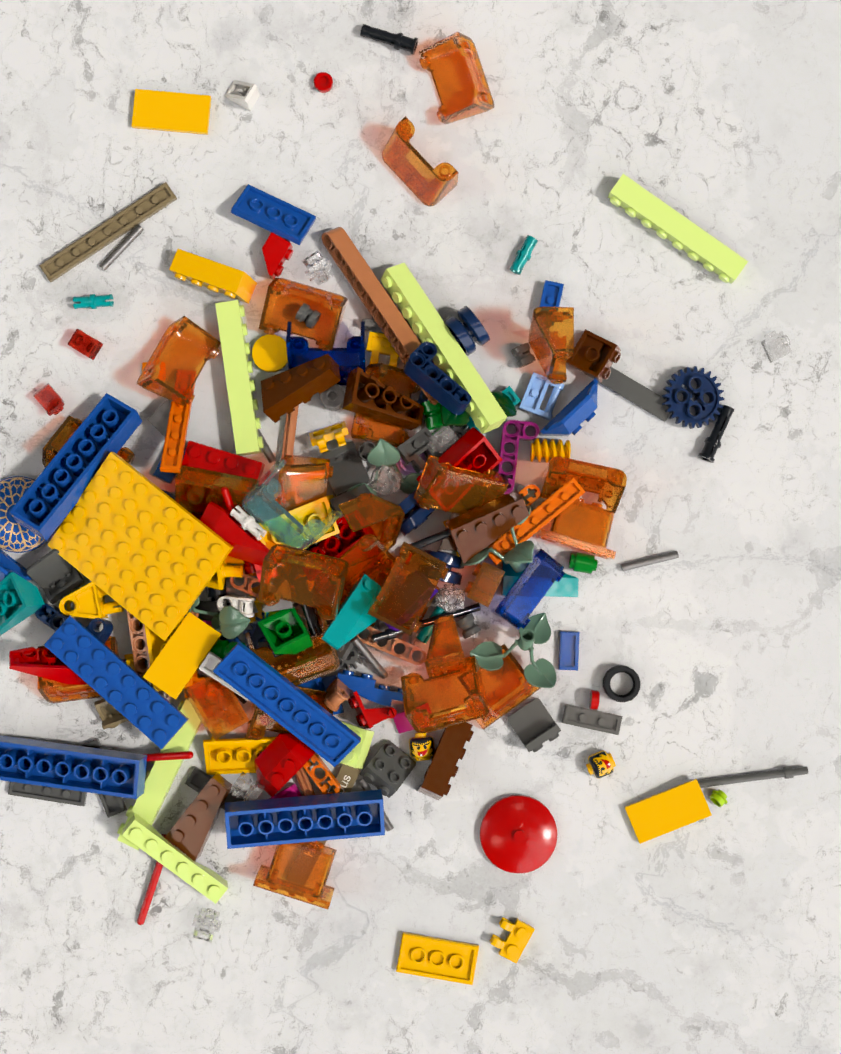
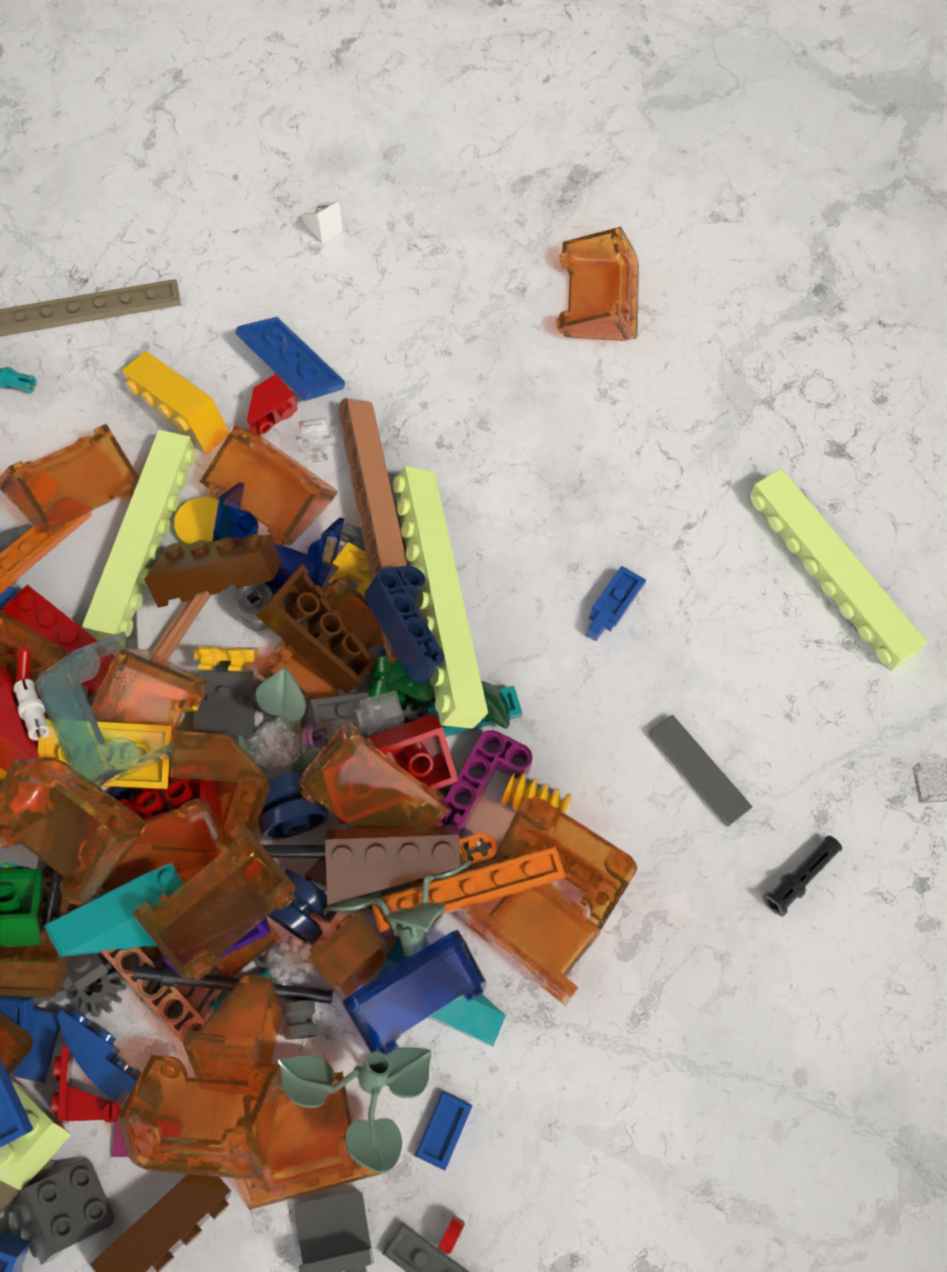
camera: 25 degrees right, 20 degrees down
(121, 247) = (80, 332): flat silver bar -> none
(171, 111) = (225, 210): yellow tile -> none
(307, 315) = (274, 492): dark grey wheel -> none
(323, 82) = (428, 241): red tile -> none
(336, 694) = (37, 1045): nougat piece -> none
(369, 657) = (122, 1005): flat silver bar -> none
(396, 40) = (542, 226): black pin -> none
(416, 173) = (510, 386): clear orange windscreen -> none
(421, 747) = (134, 1194): head -> none
(467, 330) = (483, 585): dark blue wheel -> none
(523, 255) = (604, 525): teal pin -> none
(523, 355) = (551, 652): dark grey wheel -> none
(535, 393) = (548, 711): light blue plate -> none
(552, 340) = (596, 633): clear orange windscreen -> none
(574, 413) = (591, 761): blue wedge -> none
(583, 562) = (521, 991): green brick -> none
(594, 356) = (654, 691): reddish brown plate -> none
(621, 698) = (534, 1230): black tyre -> none
(650, 560) = (630, 1033): flat silver bar -> none
(705, 385) = (759, 814): dark blue gear -> none

